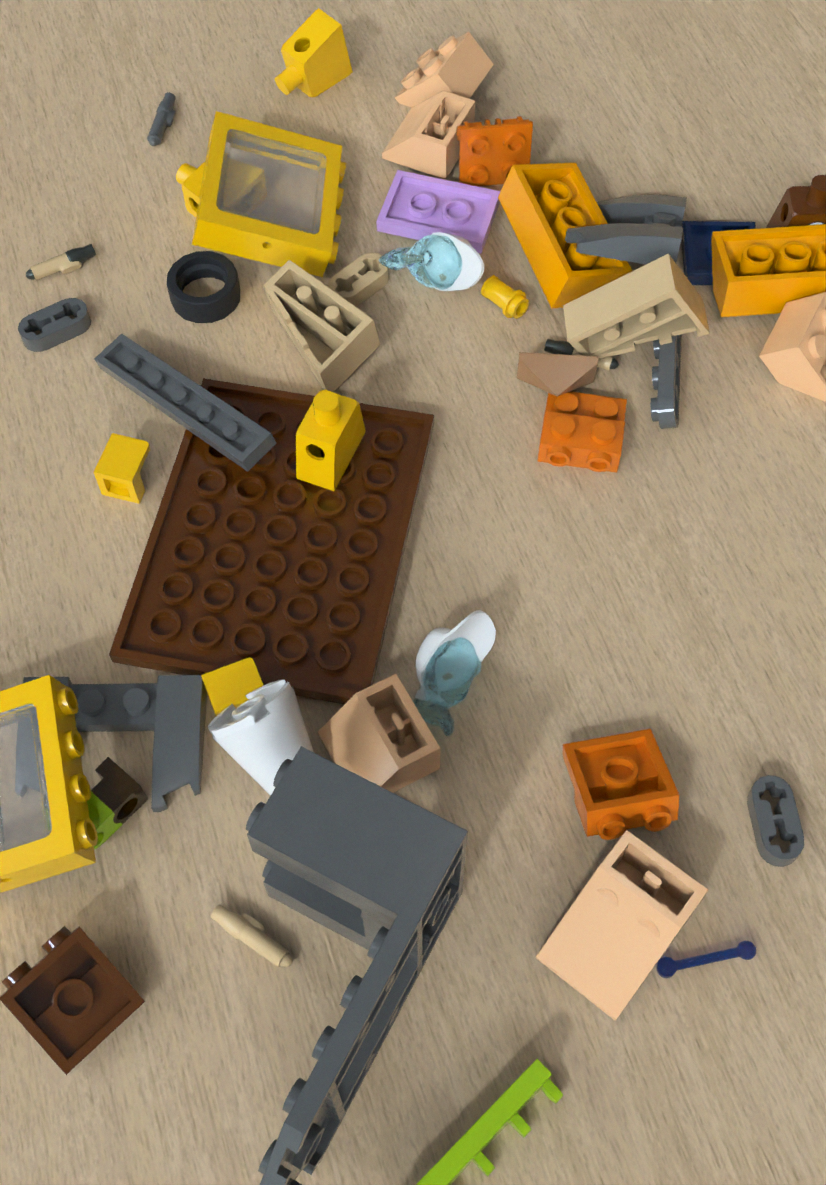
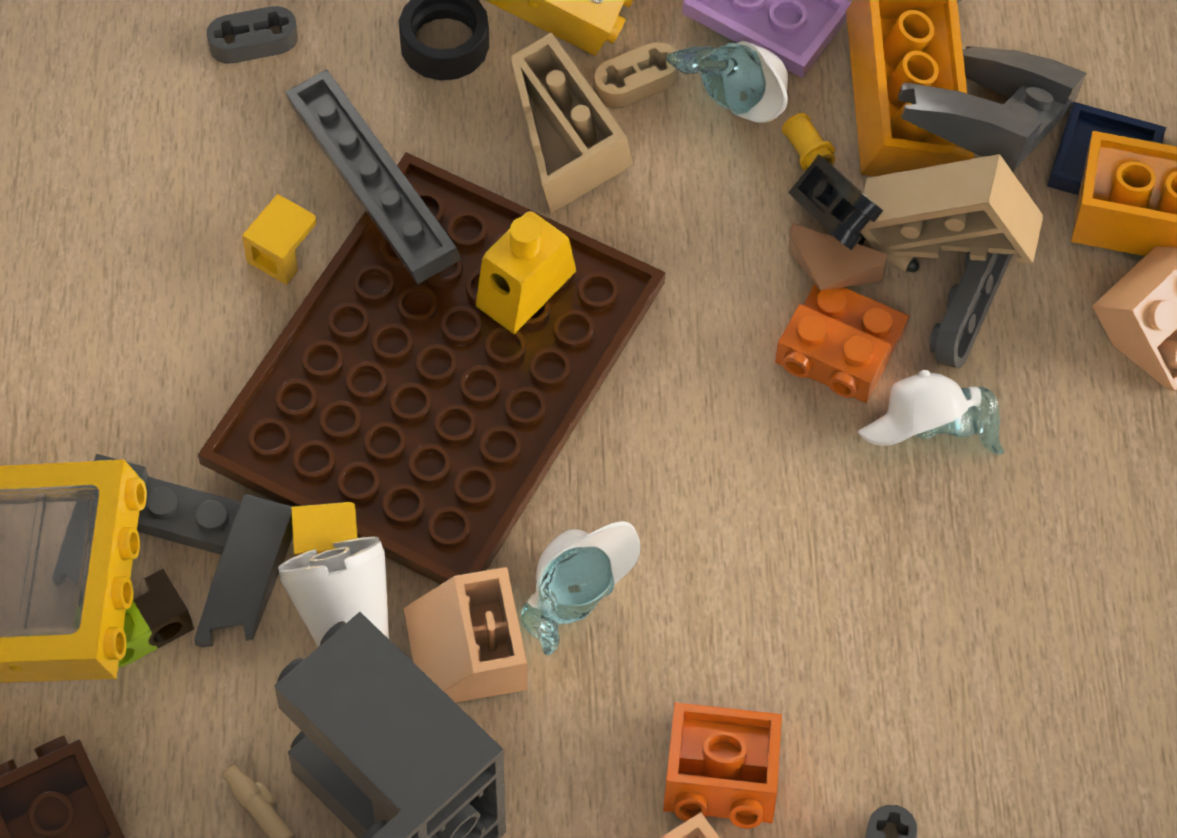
camera: 15 degrees right, 0 degrees up
(546, 328) = (835, 201): none -> black plate
(675, 458) = (936, 405): none -> white hair

